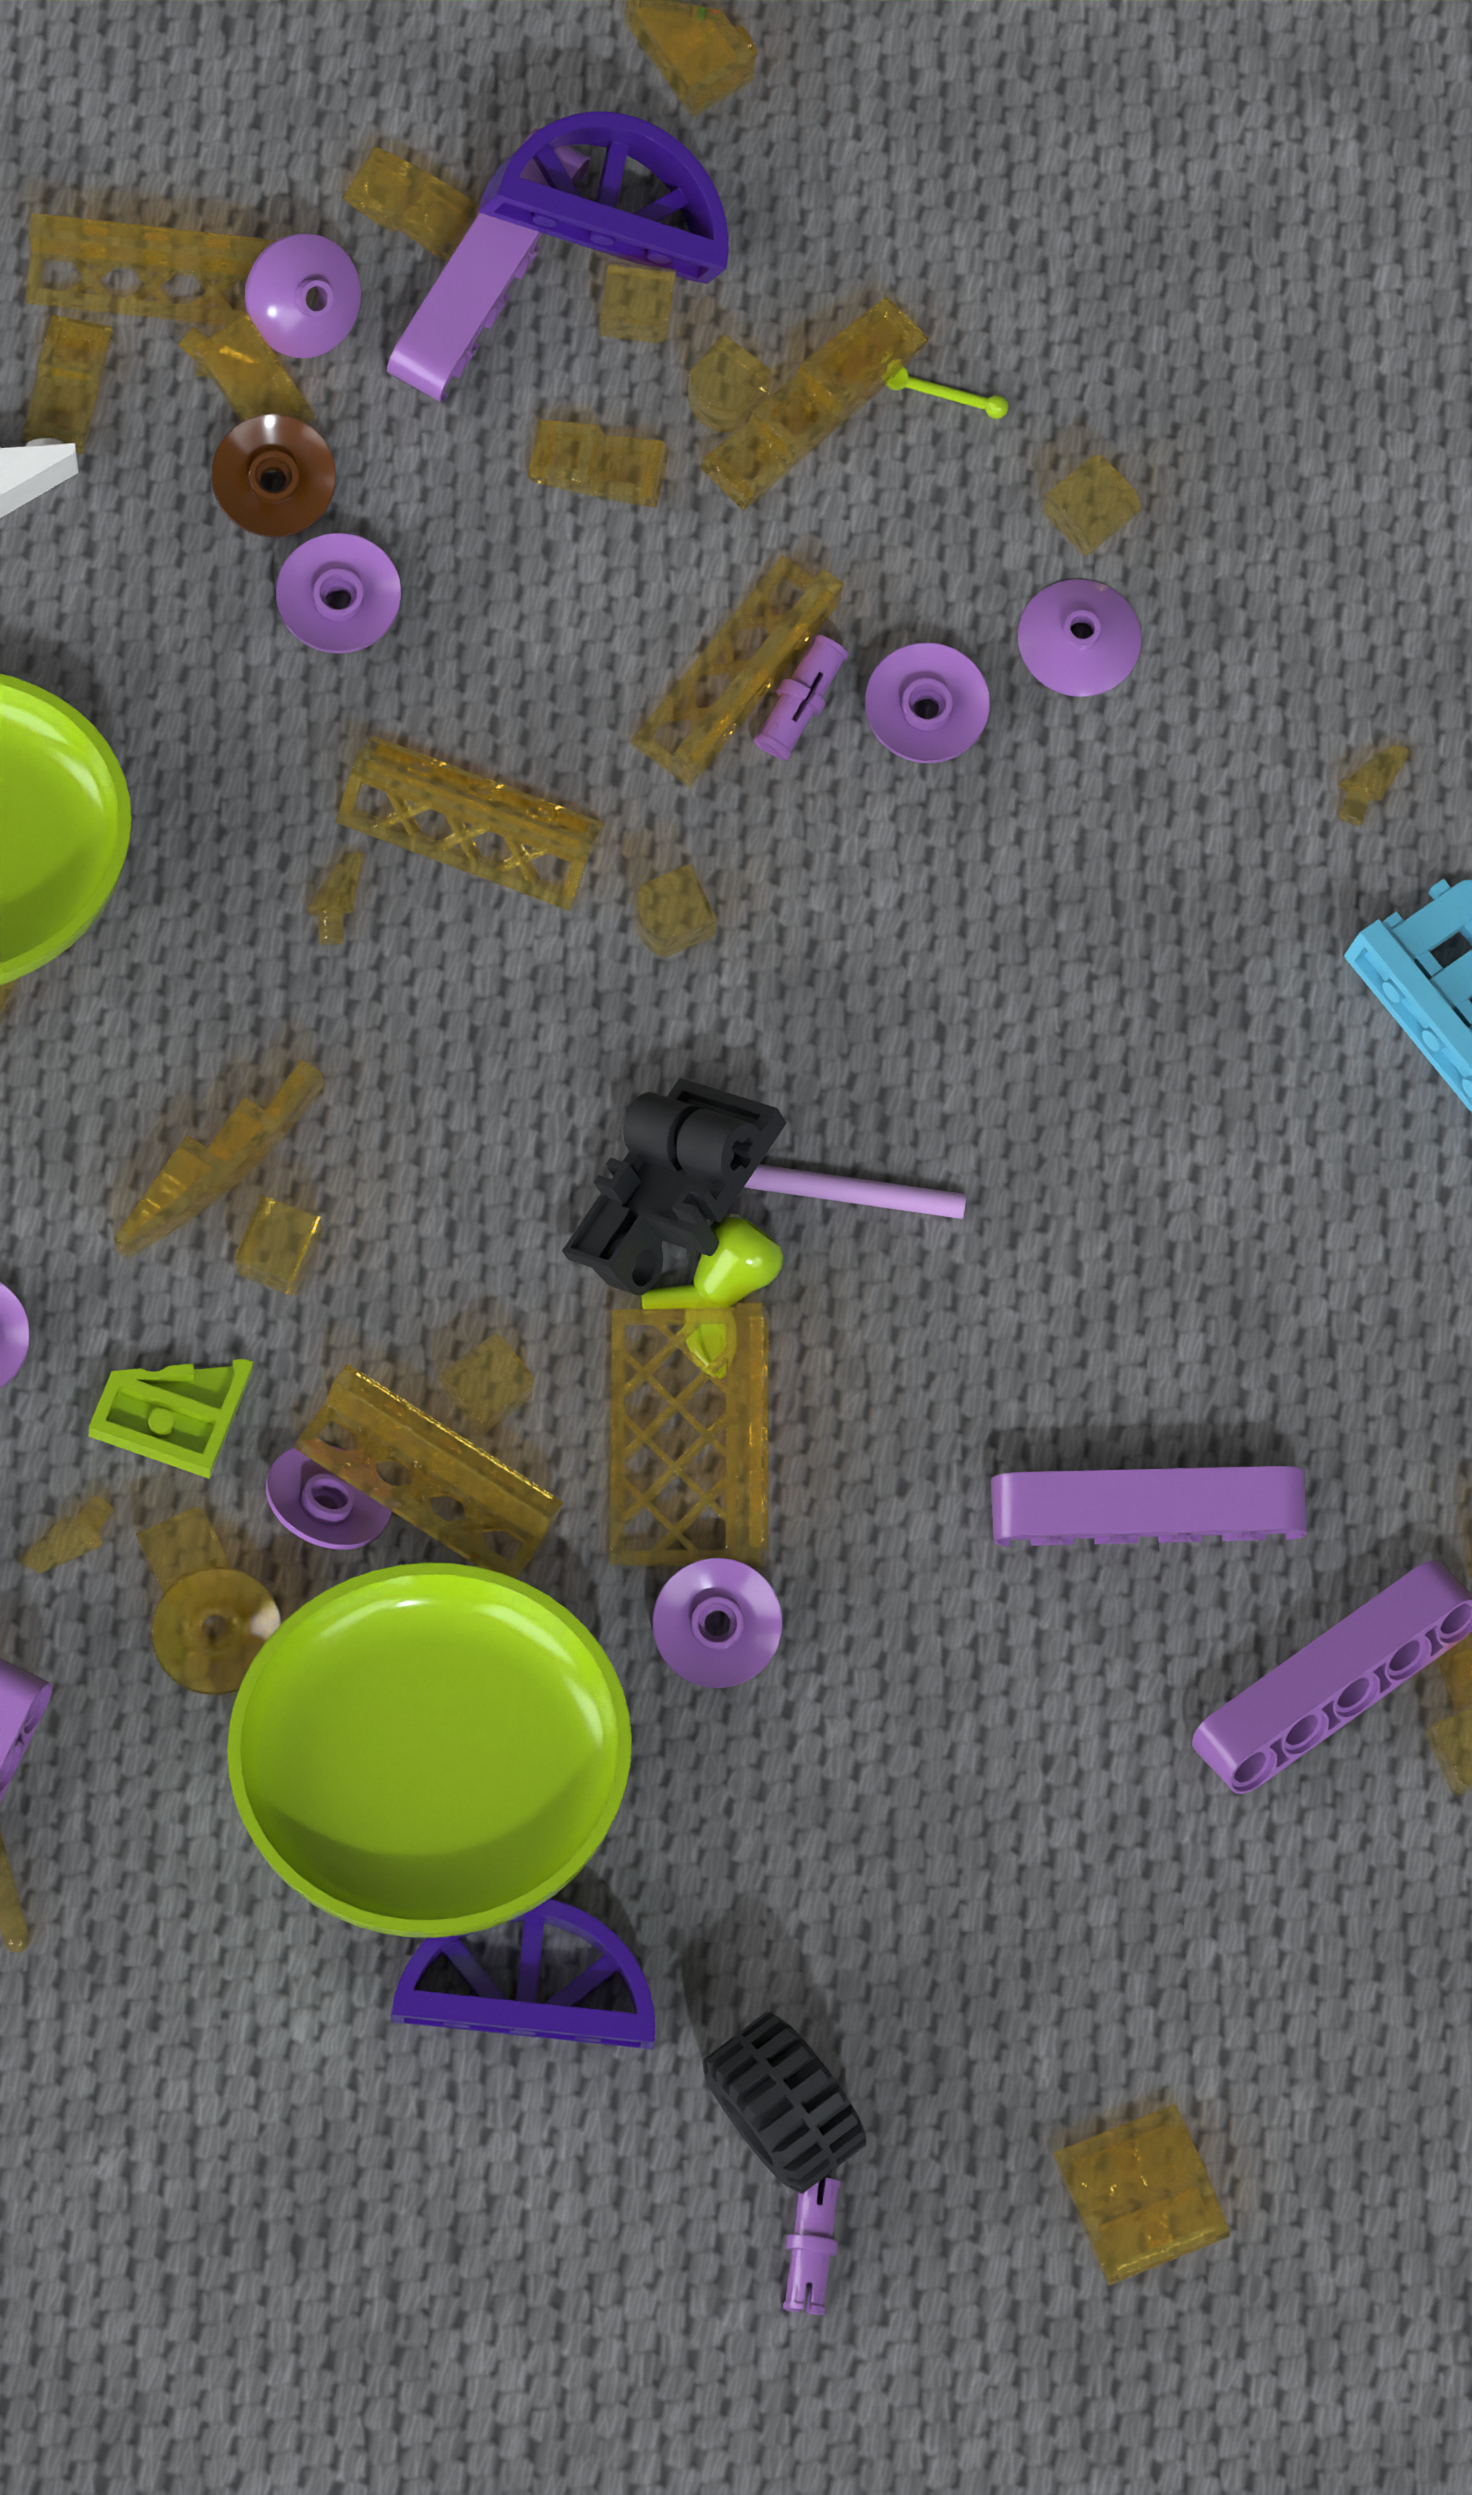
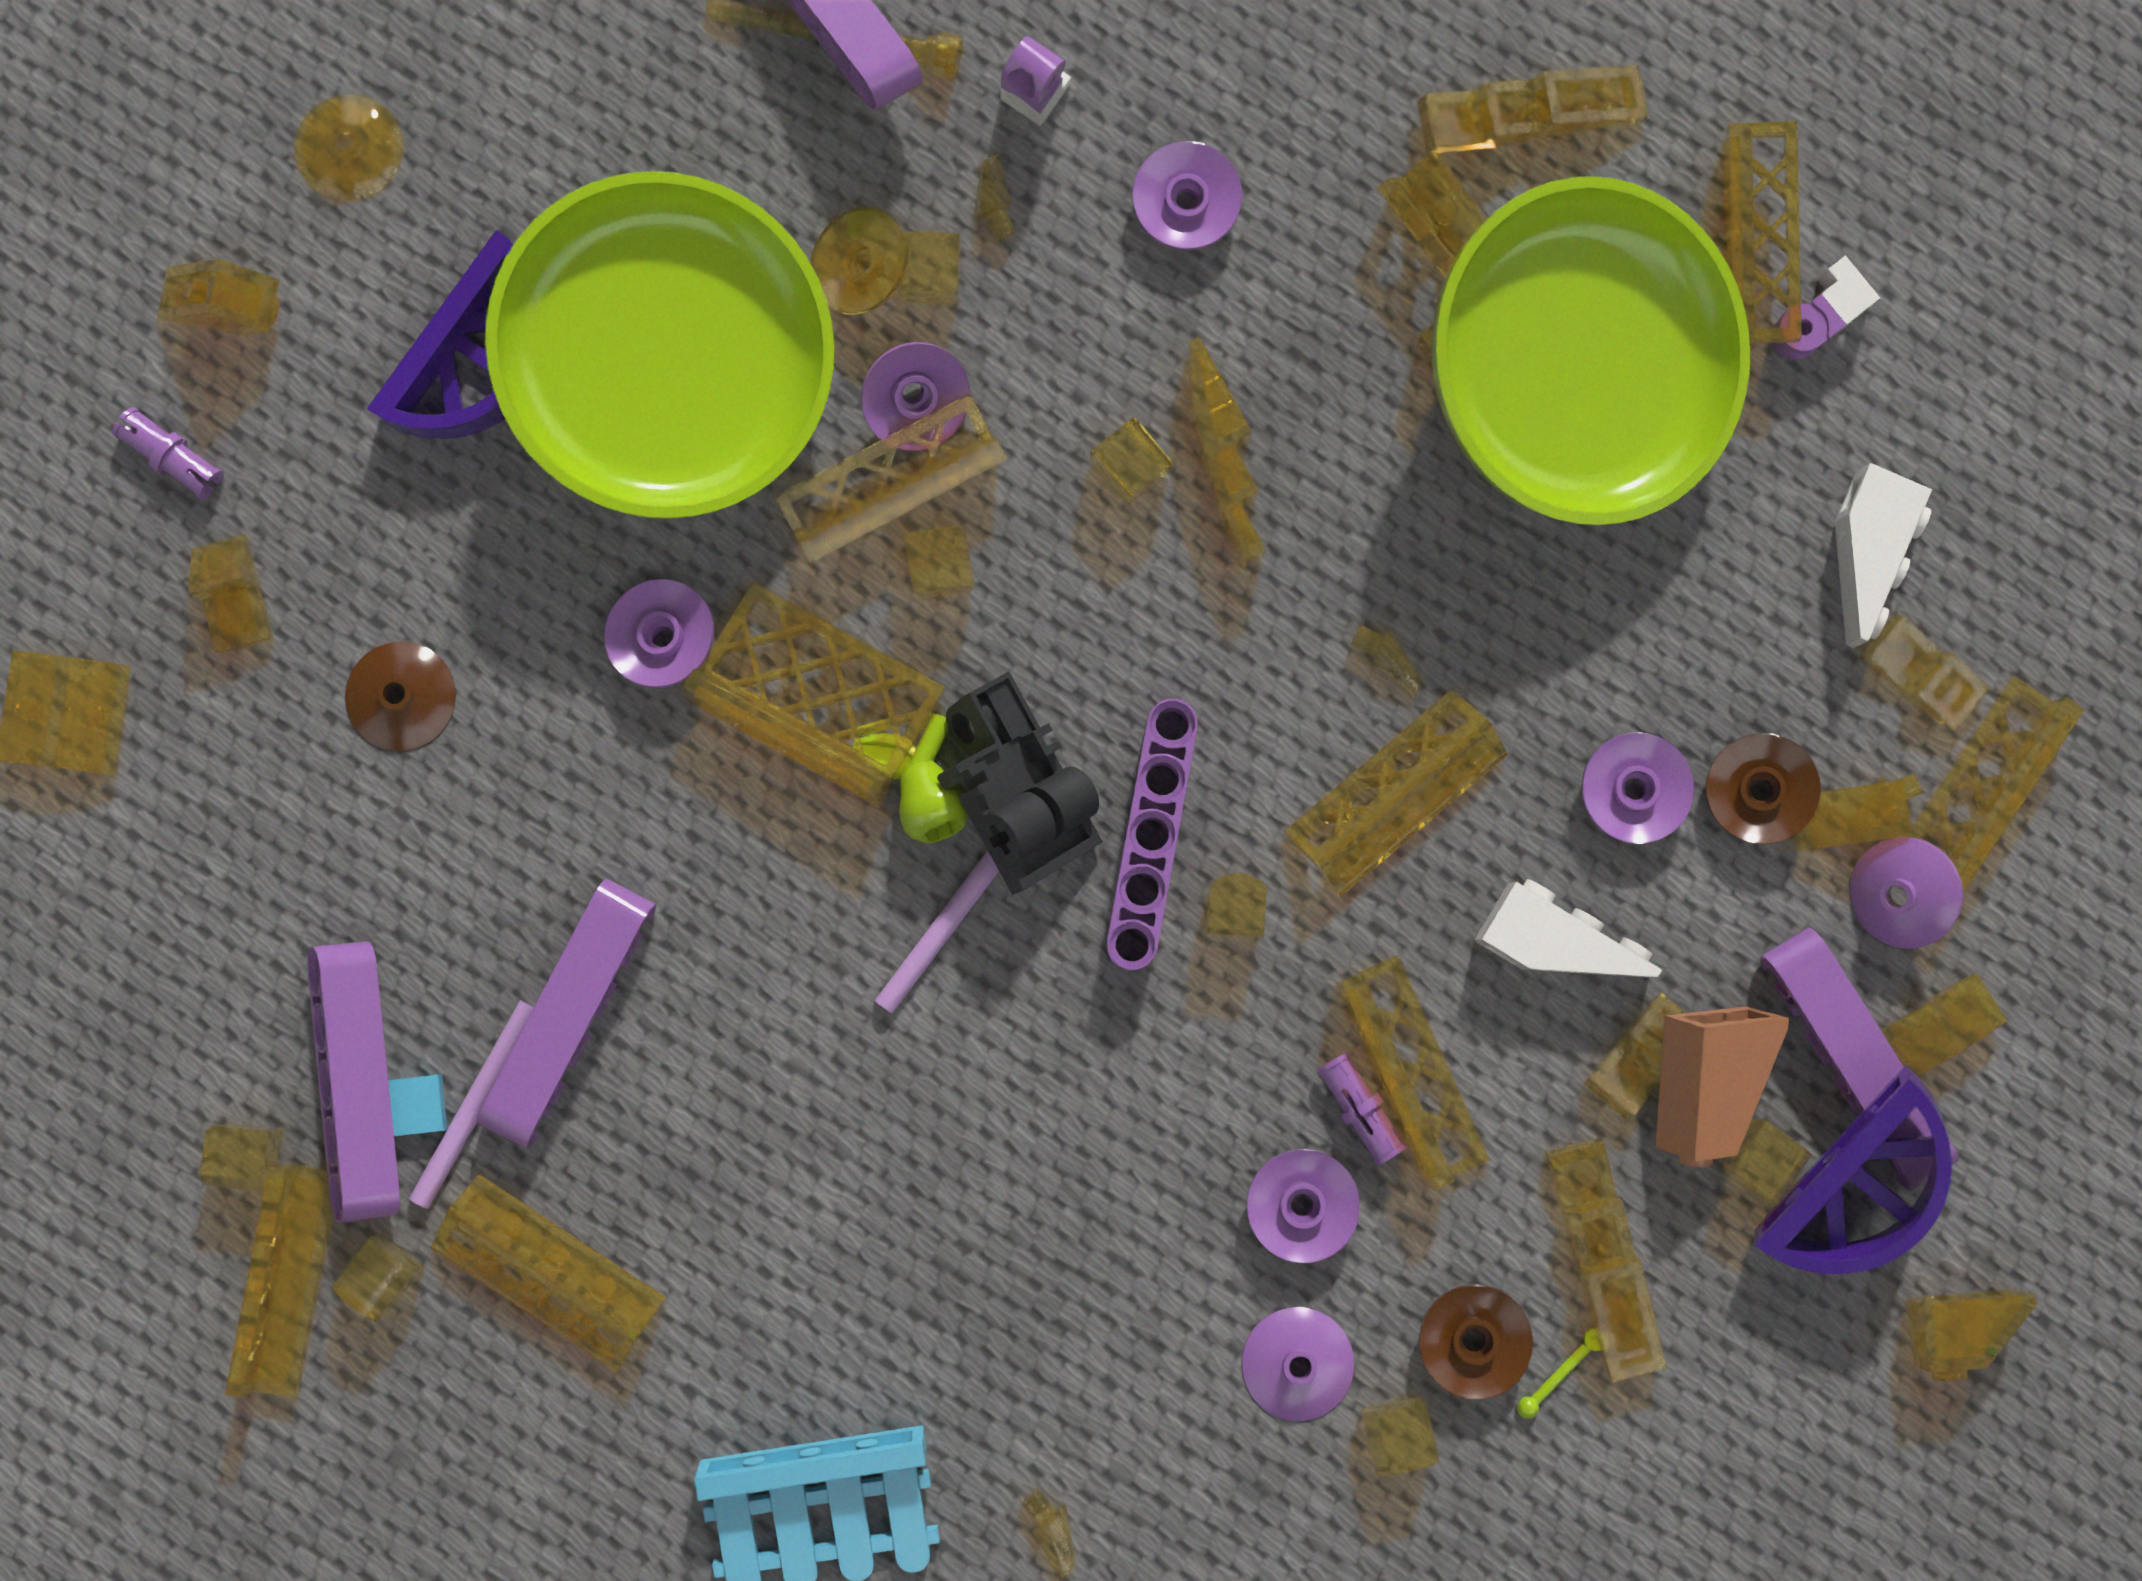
camera: 125 degrees right, 10 degrees up
(172, 1412) = (1046, 320): lime wing -> none
(385, 2284) = (365, 164): none -> clear yellow dish
(538, 602) = (1543, 937): none -> white slope
(586, 382) = (1714, 1079): none -> nougat slope
(621, 2283) = (219, 297): none -> clear yellow slope
(666, 1007) = (1159, 808): none -> medium lavender beam
(726, 386) = (1655, 1192): clear yellow piece -> none
(784, 2102) = (262, 474): black tyre -> none
(920, 2094) = (231, 594): none -> clear yellow slope
(922, 1895) = (426, 703): none -> reddish brown dish
(968, 453) = (1500, 1358): none -> reddish brown dish
(1291, 1554) = (467, 1115): none -> lavender bar
(1321, 1604) = (417, 1105): none -> medium azure tile
(1402, 1383) = (549, 1265): none -> clear yellow fence

